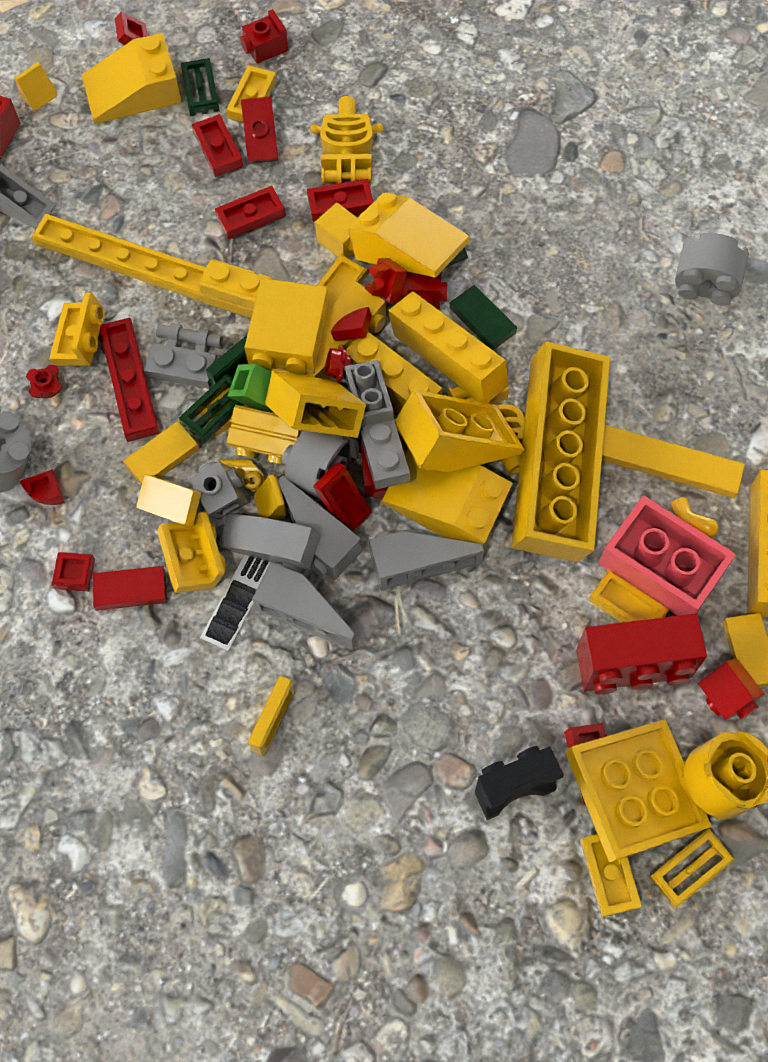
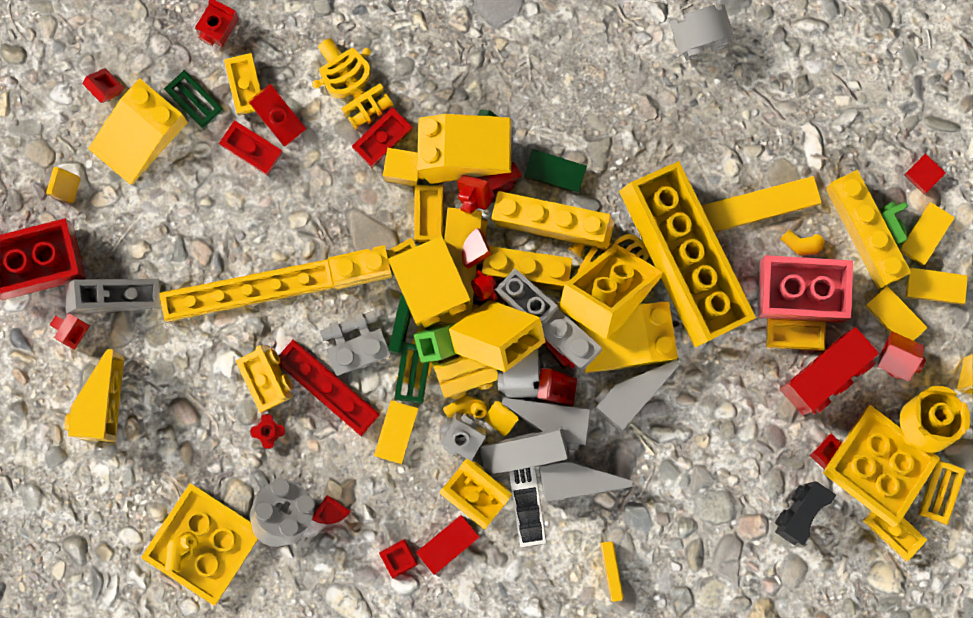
camera: 35 degrees left, 15 degrees up
(168, 500) = (433, 466): tile -> none
(250, 212) = (320, 192): red plate -> none

